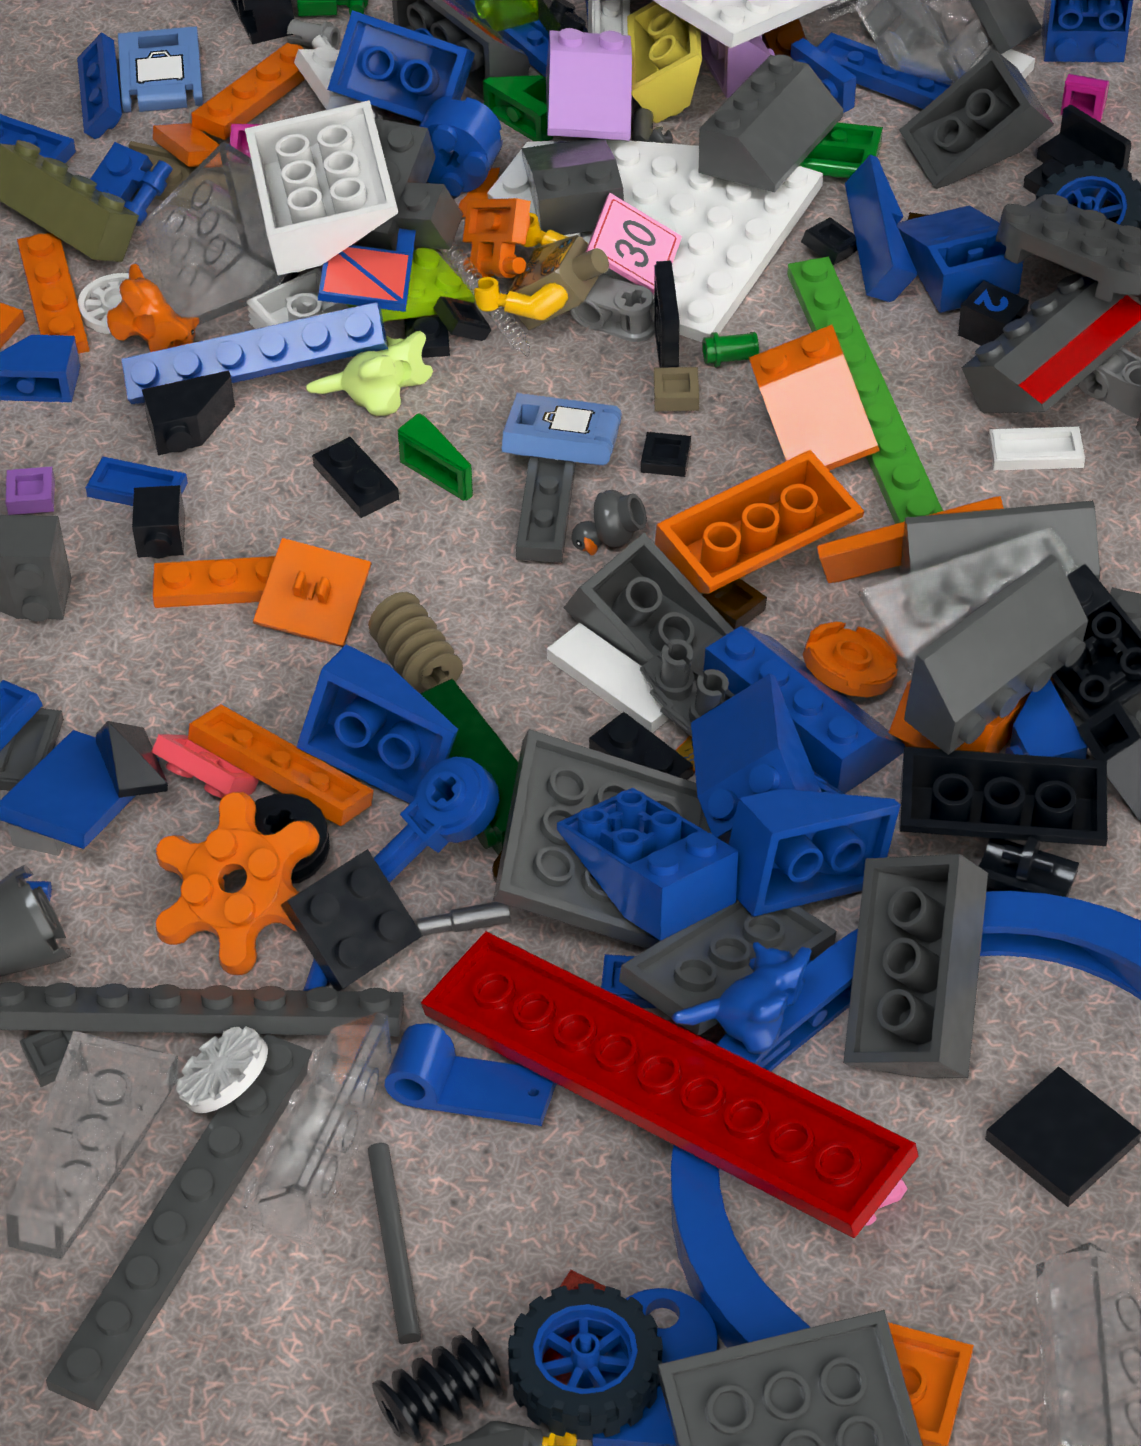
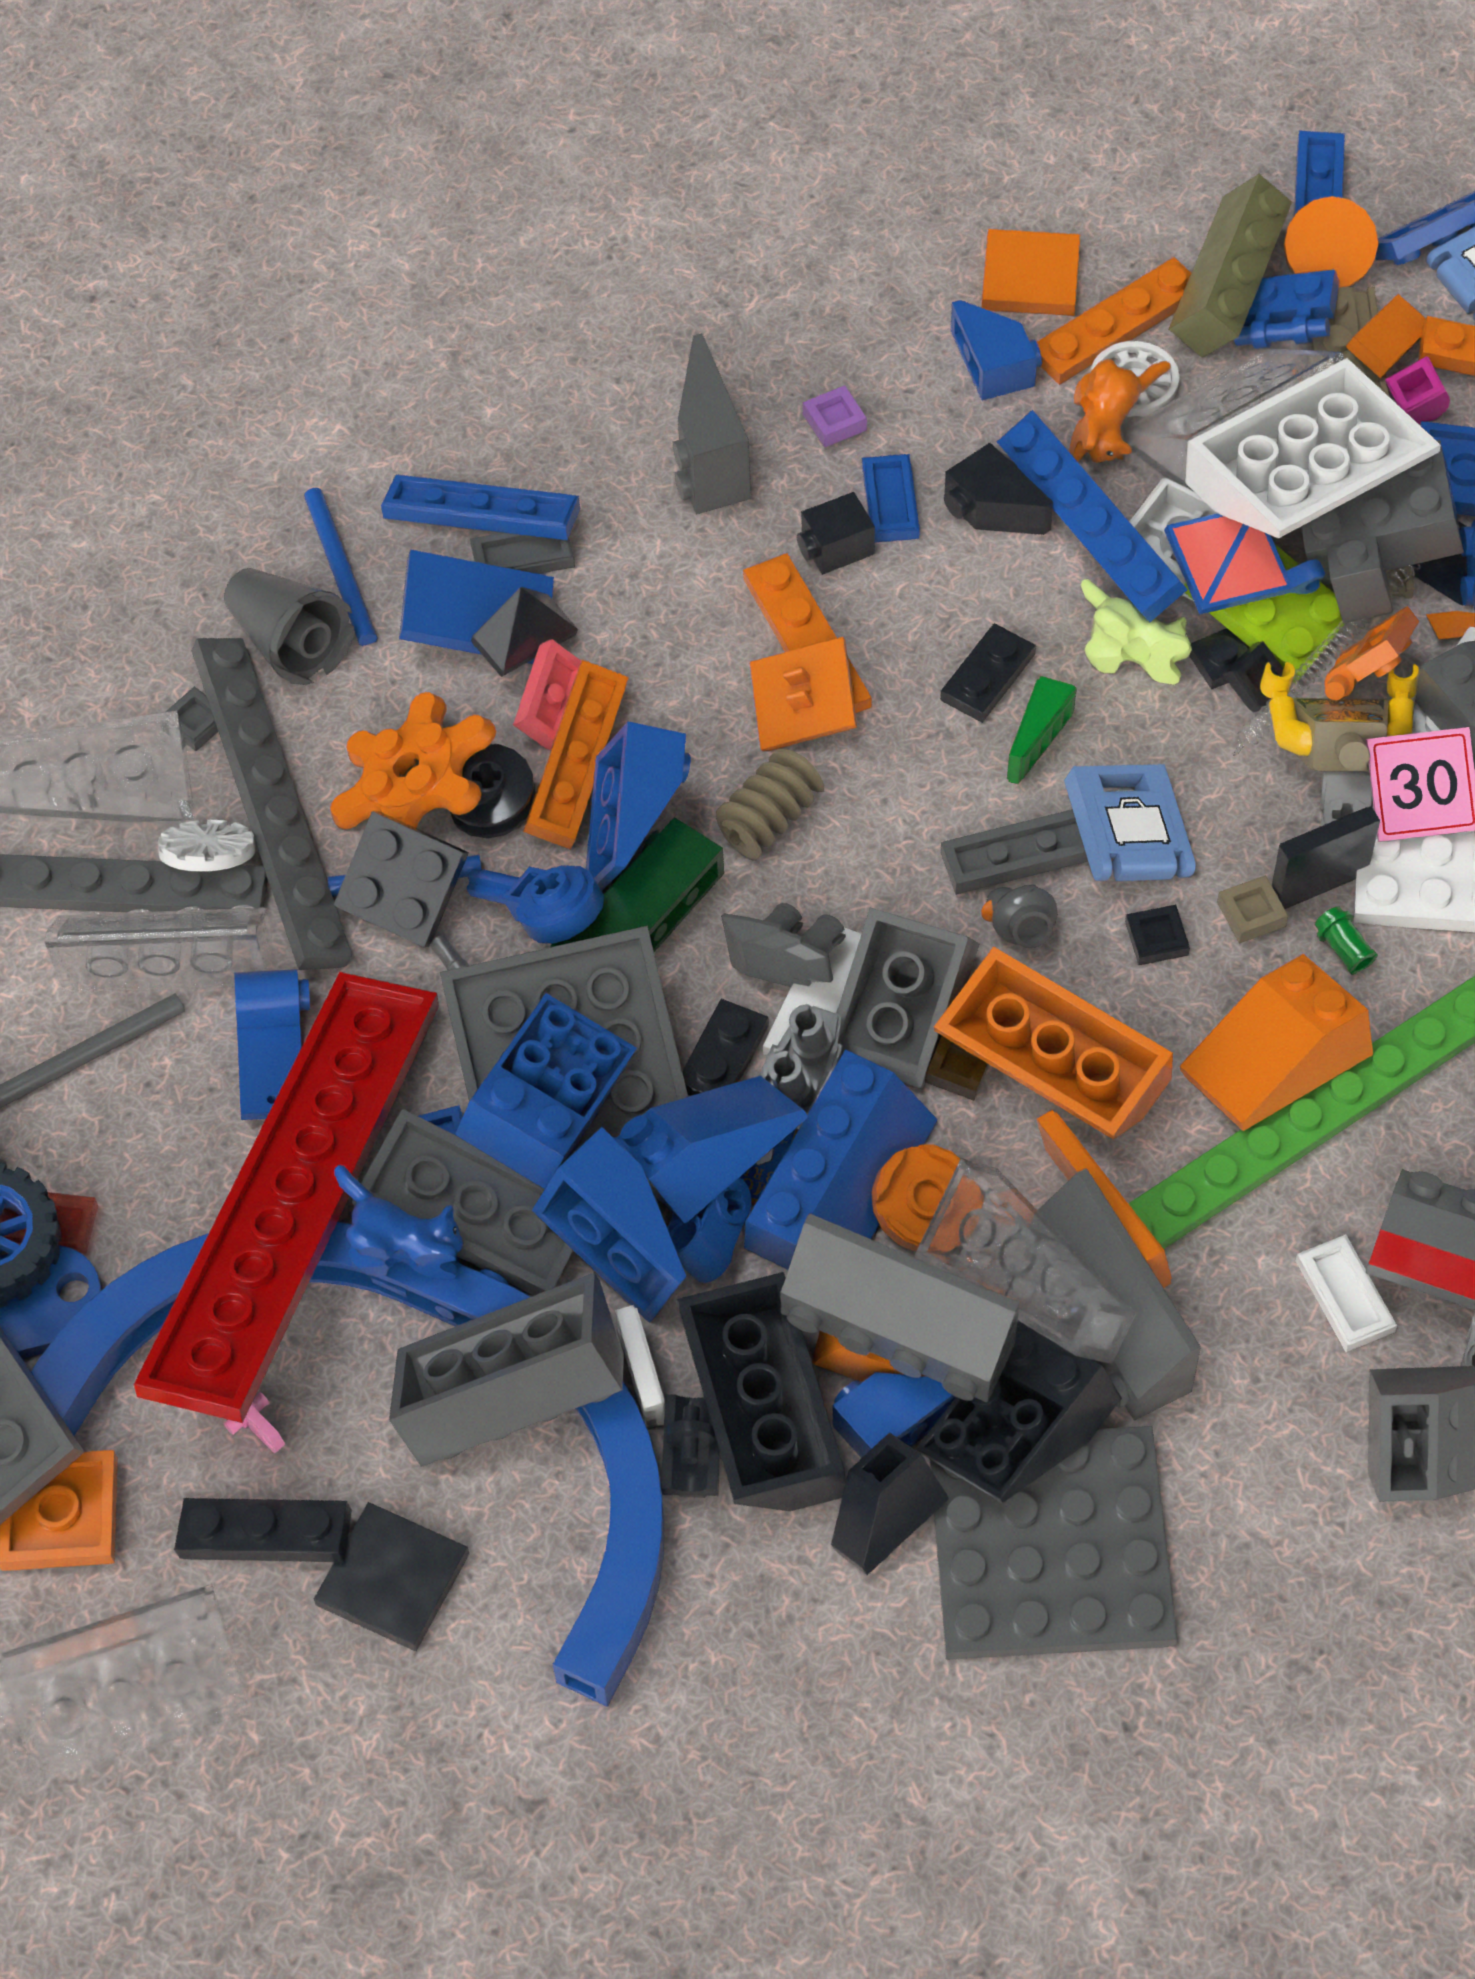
camera: 70 degrees right, 10 degrees up
(76, 138) = (1331, 236): none -> orange tile
(575, 675) = (775, 953): none -> dark grey connector
(986, 1219) = (263, 1530): none -> black plate

